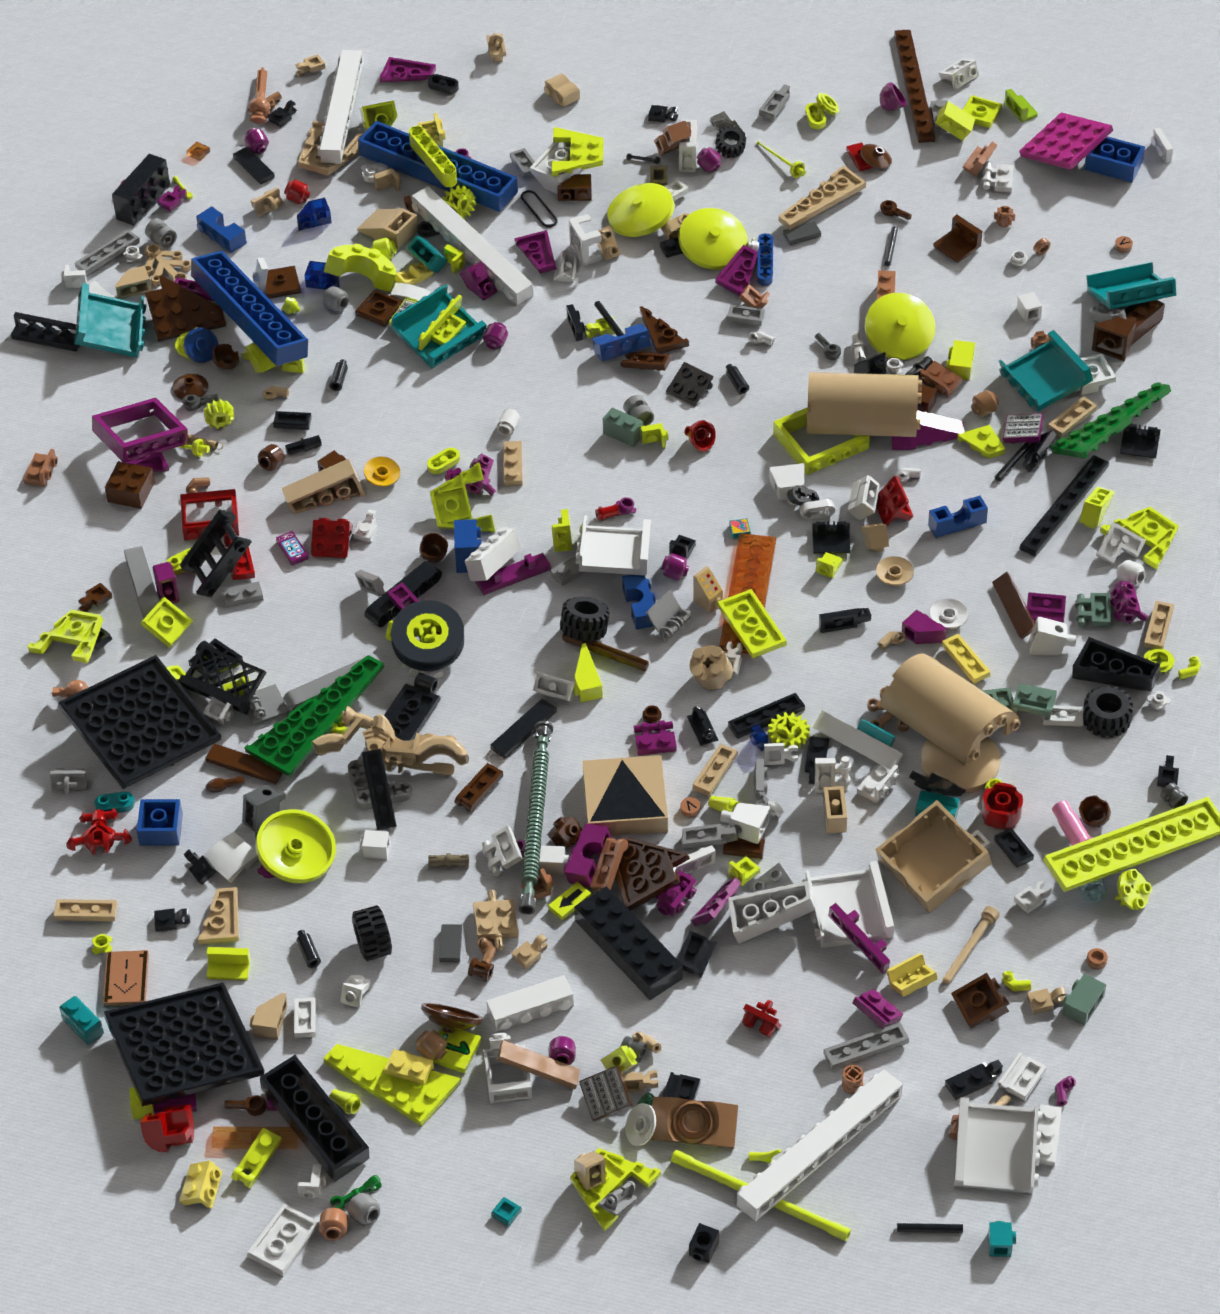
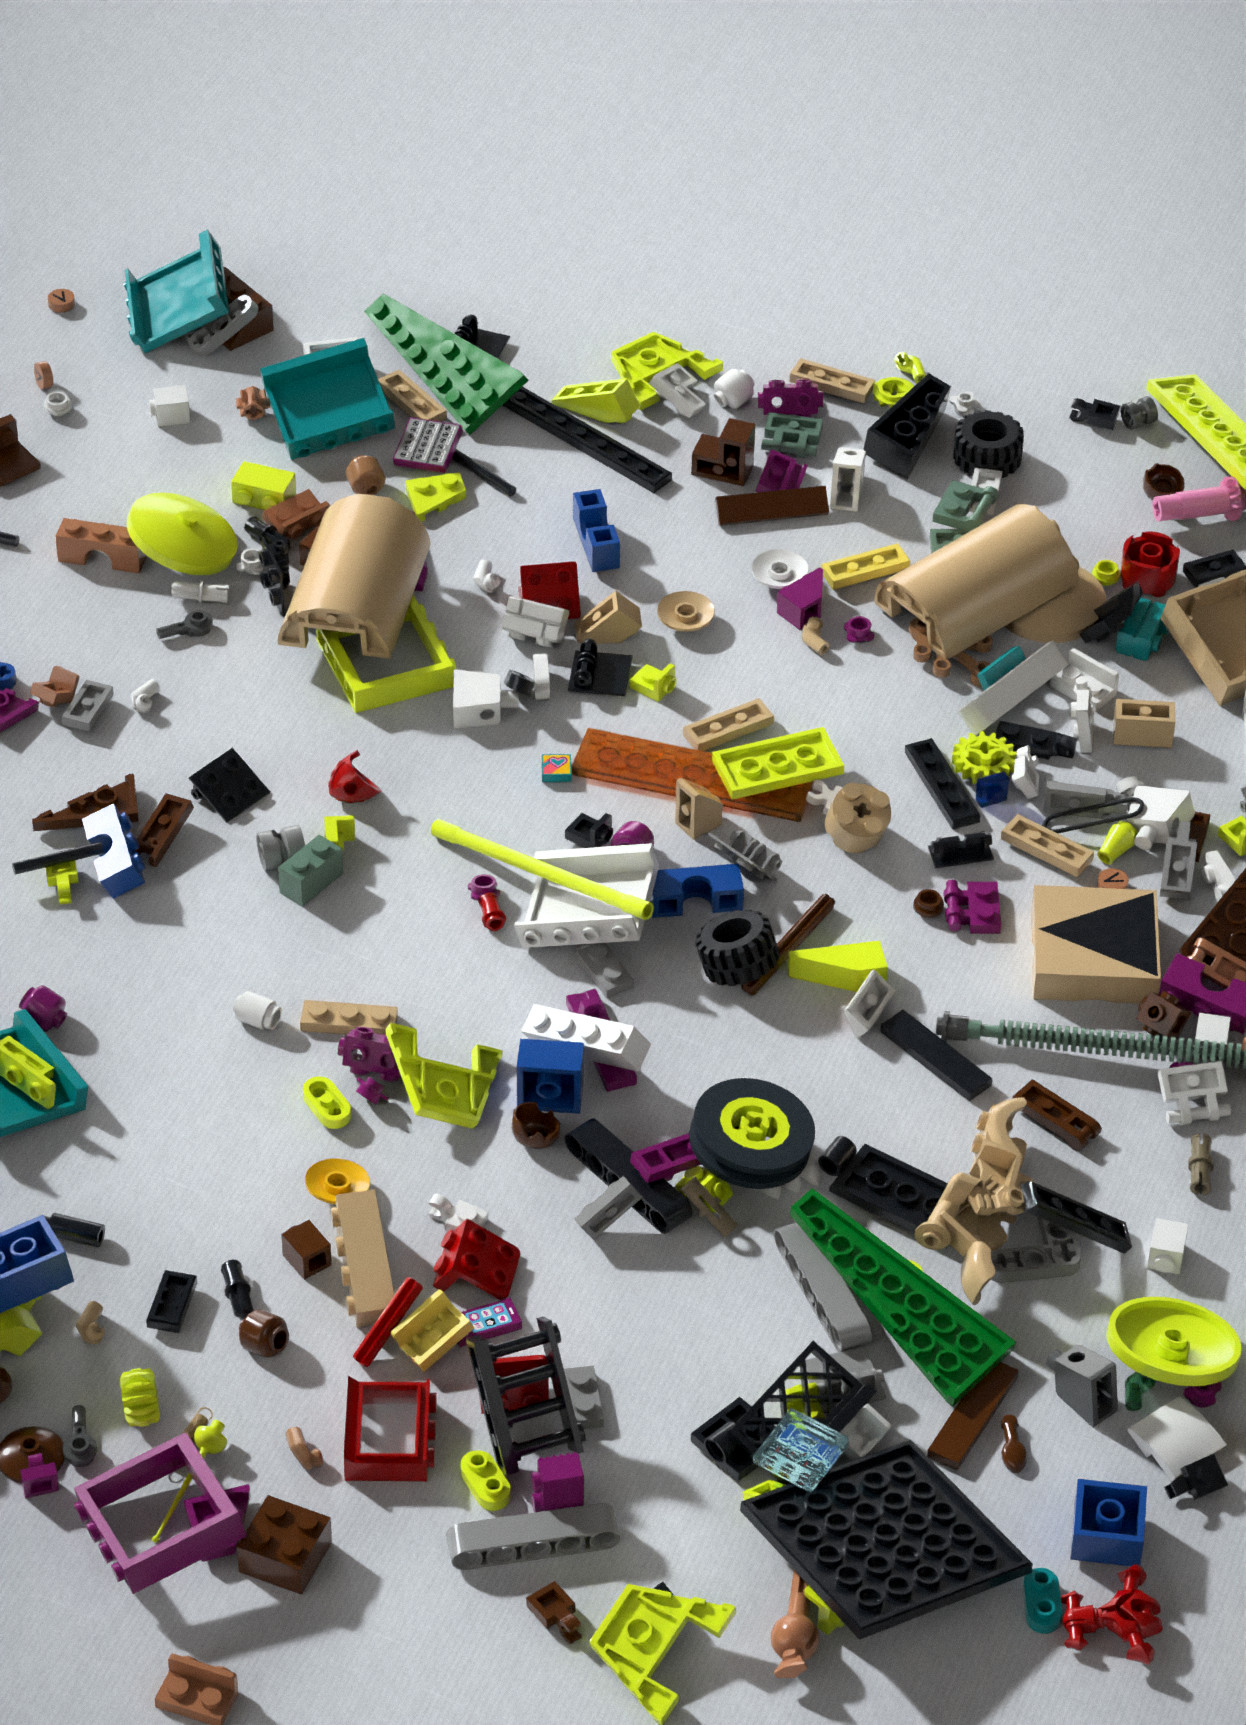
camera: 85 degrees left, 5 degrees down
(68, 779) = (999, 1659): light grey hips -> none
(166, 622) = (642, 1500): neon yellow tile -> none
(169, 387) = (39, 1478): none -> magenta tile
(192, 676) = (800, 1450): none -> clear light blue tile
(276, 501) = (387, 1321): none -> red axle
(277, 522) = (431, 1330): none -> light yellow bracket
(378, 628) = (693, 1190): none -> dark tan pin
(561, 533) = (541, 951): neon yellow bracket -> none
(573, 318) = (42, 907): black plate -> none
(599, 556) = (627, 903): none -> neon yellow piece
(735, 791) = (1092, 807): none -> black piece
(737, 379) = (229, 733): black cylinder -> none
(793, 603) = (728, 725): none -> tan plate
(843, 619) = (769, 672): black hinge -> none
(900, 658) = (859, 629): none -> magenta plate
(1038, 451) = (477, 441): black hinge -> none
(1054, 573) = (728, 456): none -> reddish brown brick
(1113, 337) = (279, 323): reddish brown slope -> none

